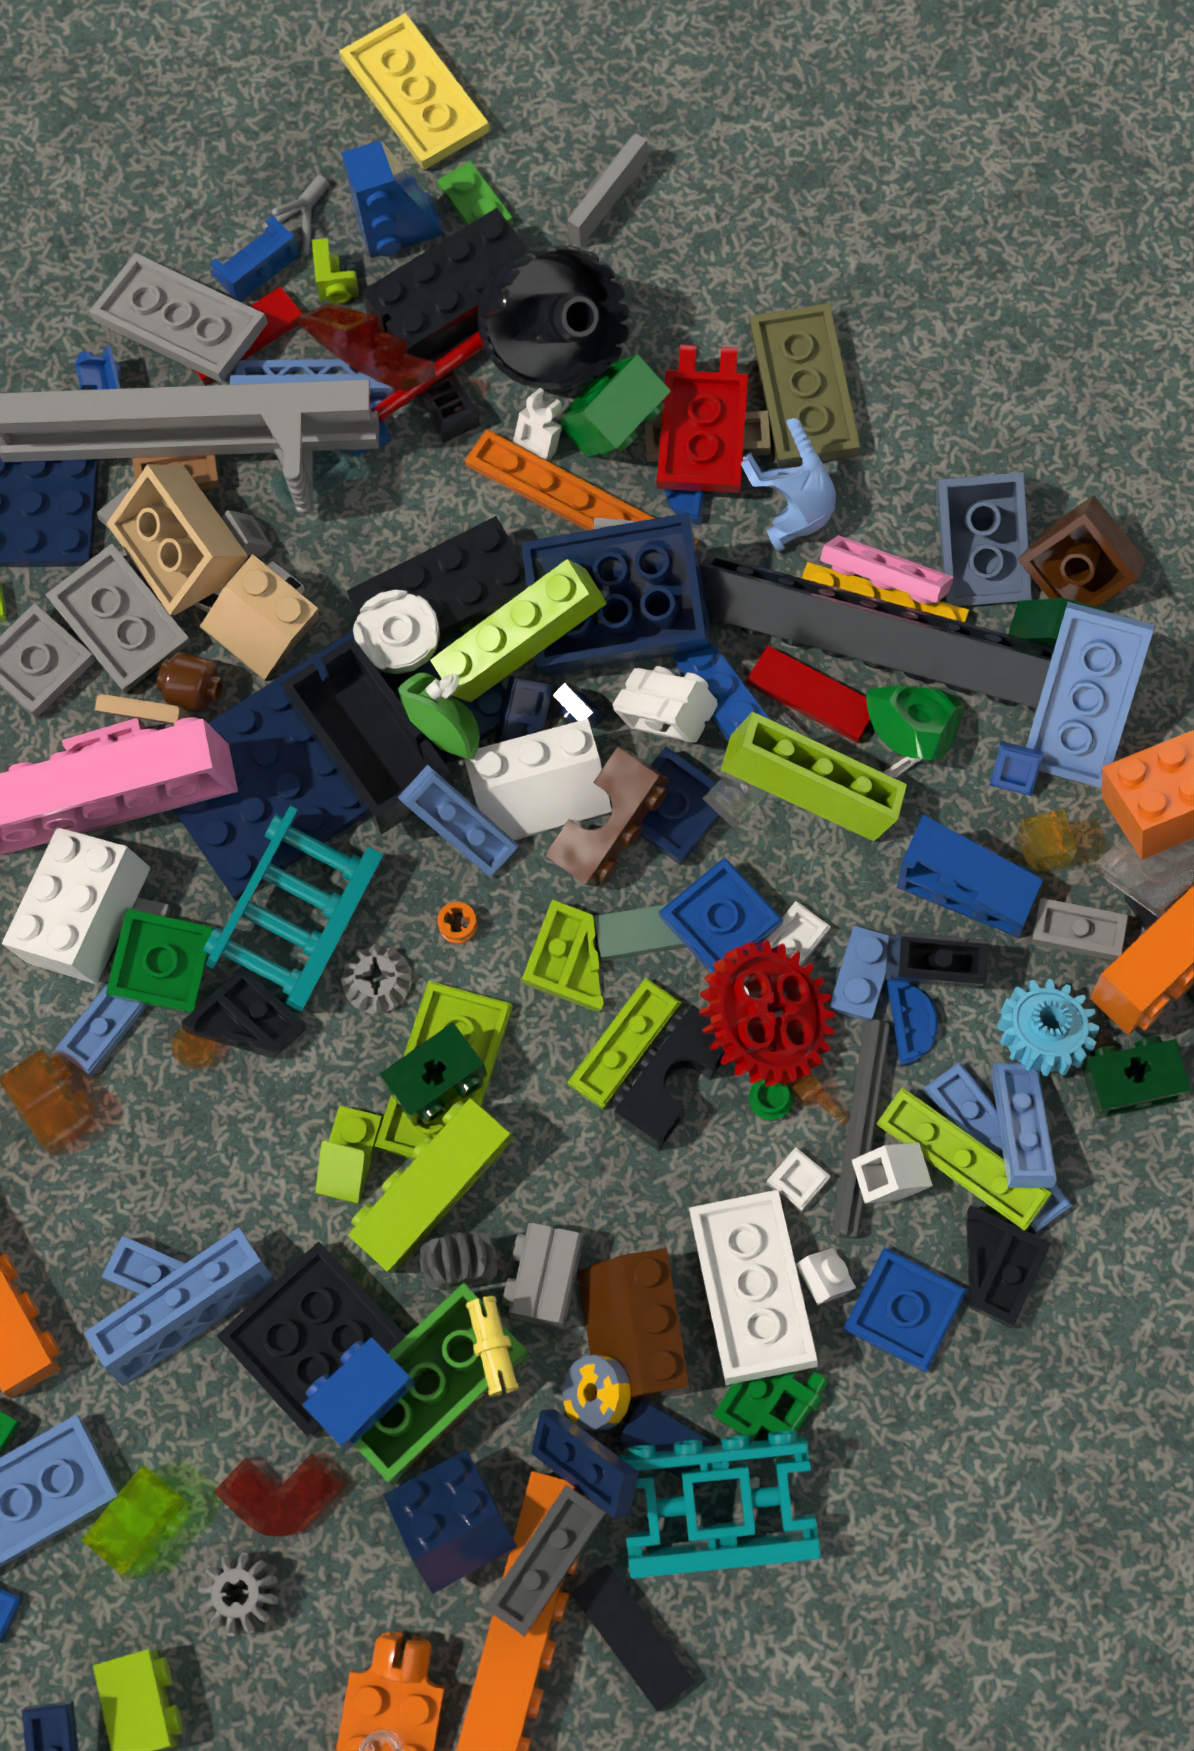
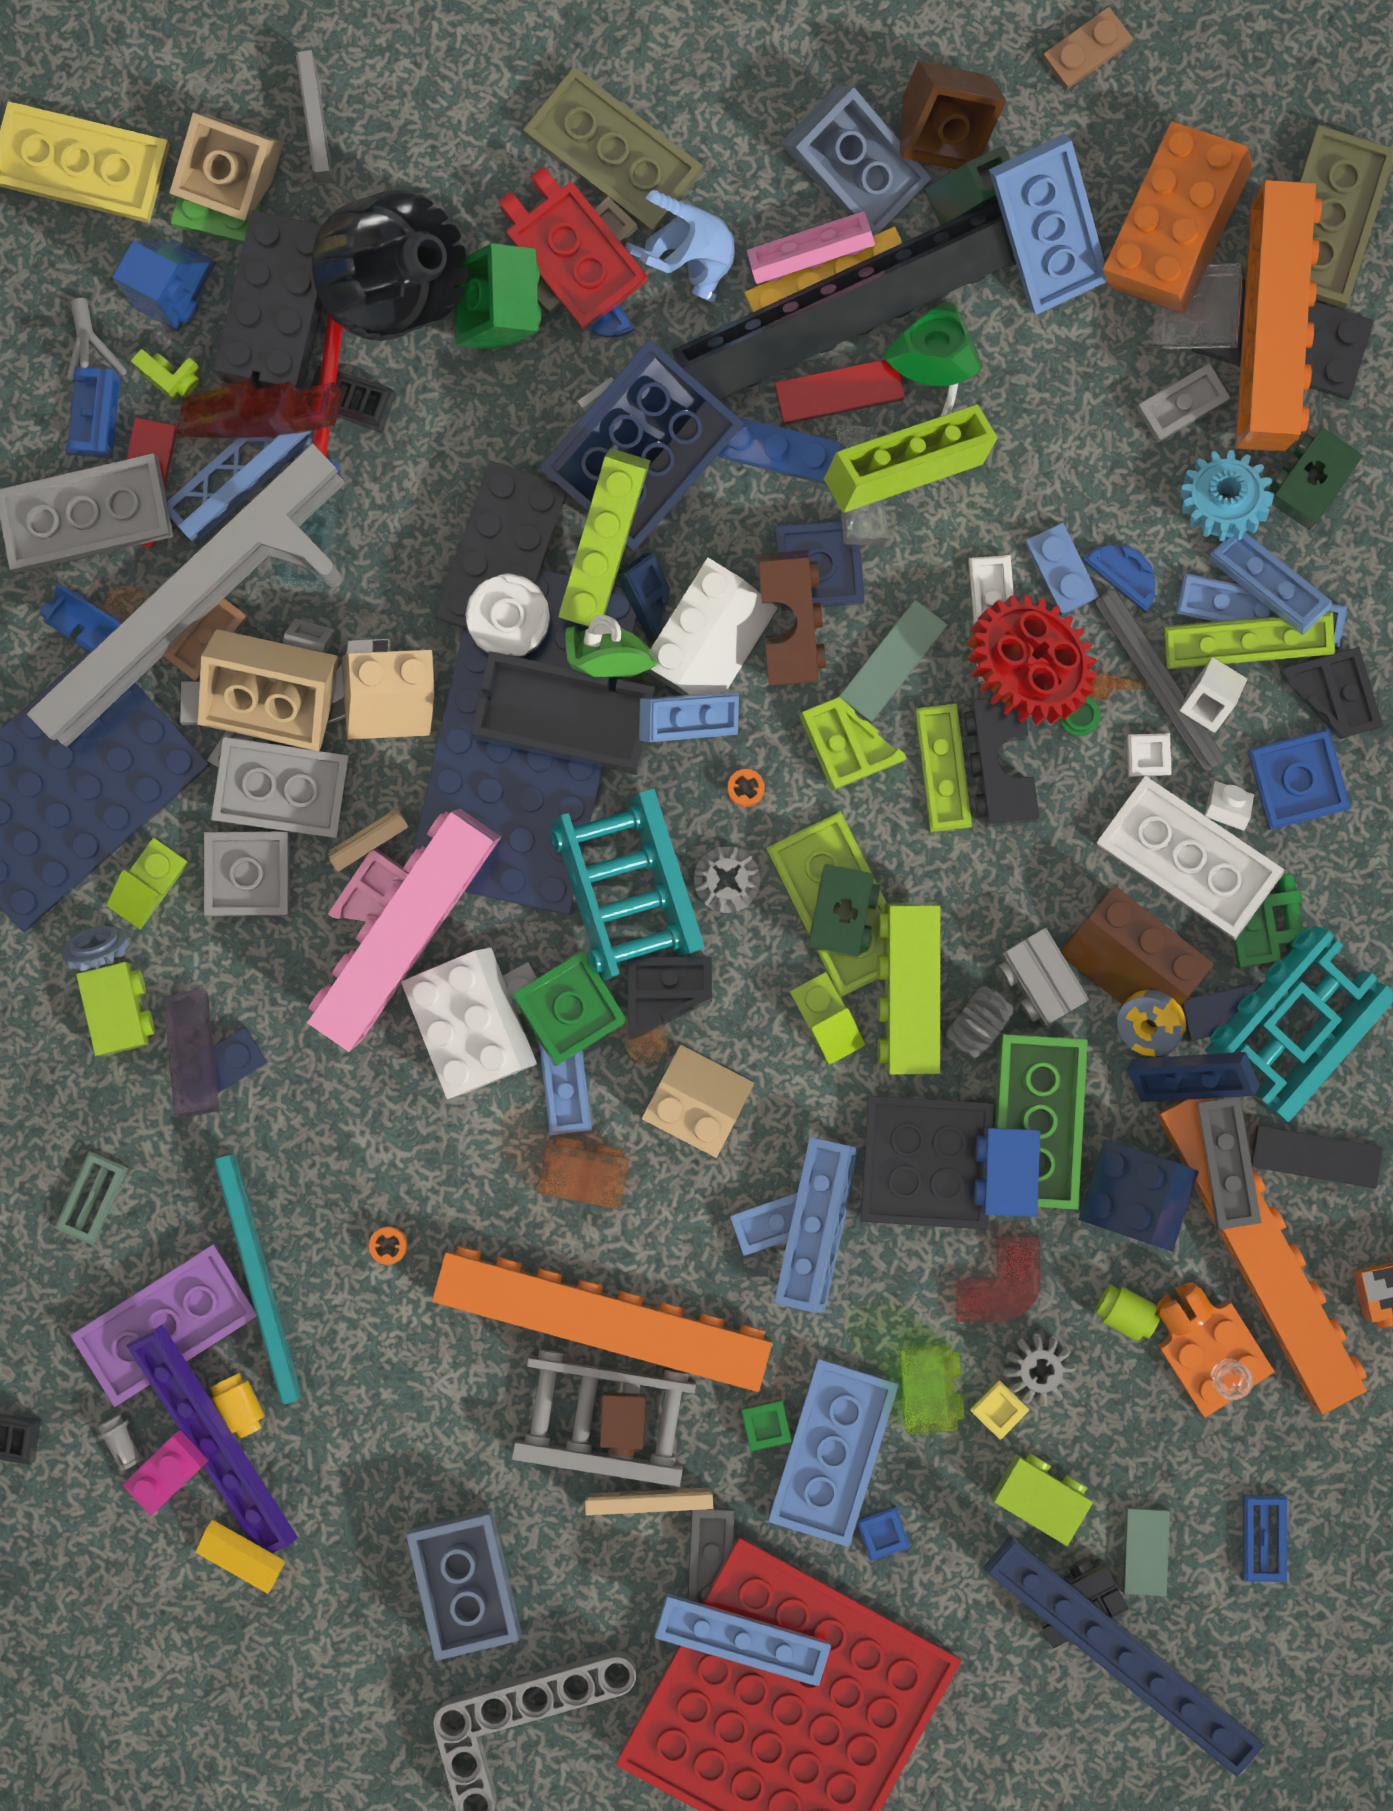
camera: 50 degrees left, 15 degrees up
(177, 1599) = (999, 1409): none -> light yellow tile
(185, 1124) = (698, 1101): none -> tan slope
(189, 682) = (382, 787): reddish brown head -> none
(353, 1616) = (1127, 1312): none -> lime brick
(492, 1346) = (1066, 1058): light yellow pin -> none
(511, 168) = (225, 166): none -> tan slope
(536, 426) = (450, 361): white plate -> none
(547, 483) = (512, 393): orange tile -> none
(578, 705) = (684, 552): plate -> none
(666, 703) = (750, 495): white brick -> none
(719, 914) = (931, 618): blue tile -> none
(937, 960) = (1111, 515): black brick -> none
(967, 878) = (1079, 435): blue wedge -> none
(1016, 768) = (1036, 320): blue tile -> none
(1046, 841) = (1107, 358): clear yellow brick -> none

